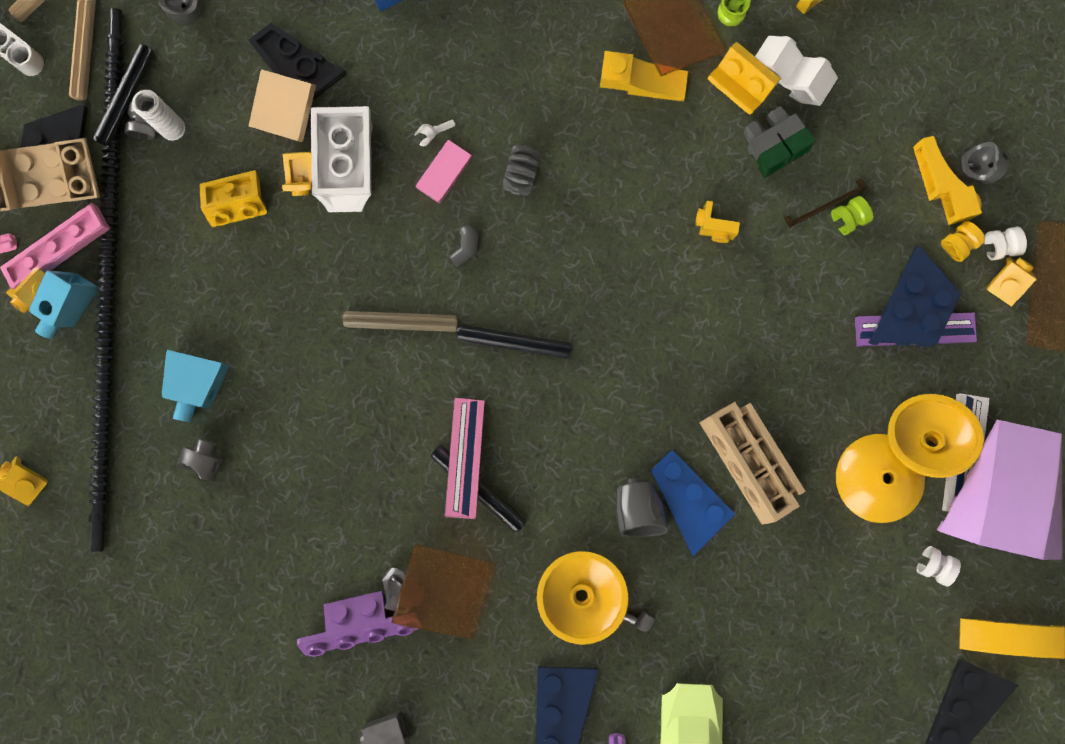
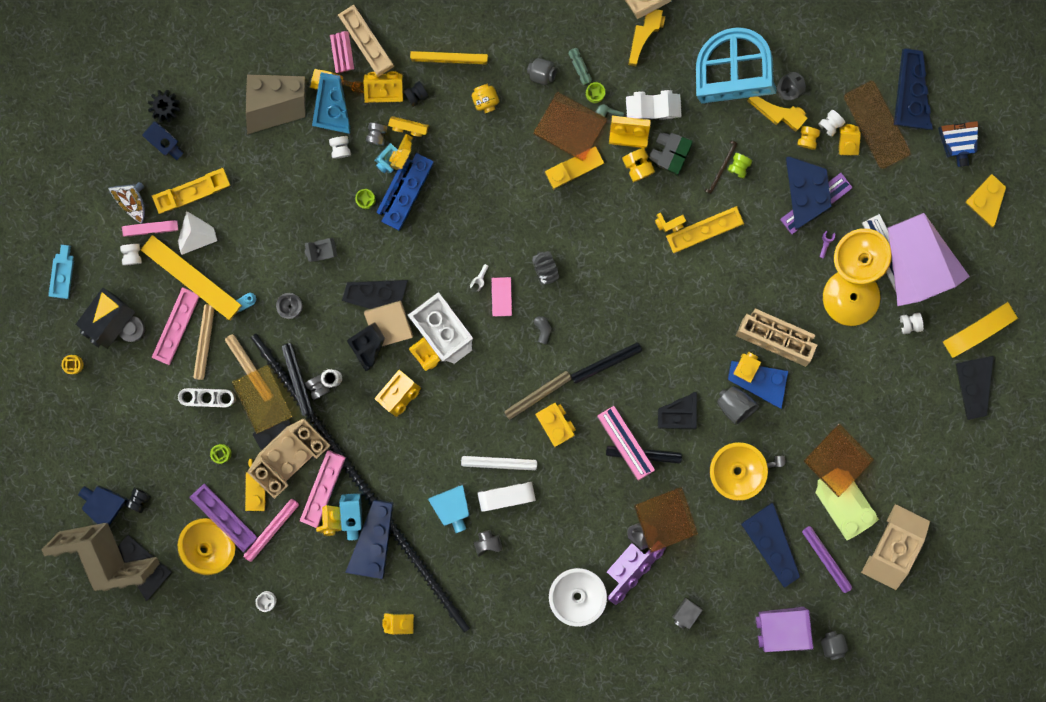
camera: 35 degrees left, 5 degrees up
(59, 360) = (372, 546): none -> dark blue wing
(65, 89) = (262, 399): none -> clear yellow piece
(237, 111) = (367, 345): none -> black wing
(240, 615) = (580, 611): none -> white dish
(269, 418) = (506, 496): none -> white beam
(292, 370) = (503, 463): none -> white axle
(395, 372) = (555, 424): none -> yellow bracket
(558, 469) = (679, 414): none -> black wing
(687, 471) = (747, 367): none -> yellow bracket
(721, 677) = (838, 460): none -> clear orange piece
(726, 123) = (641, 171): none -> yellow wheel
(728, 35) = (603, 109): none -> sand green hand
(752, 265) = (704, 229): none -> yellow tile
(897, 385) = (826, 244): none -> medium lavender hand
(917, 113) = (735, 88): none -> medium azure window

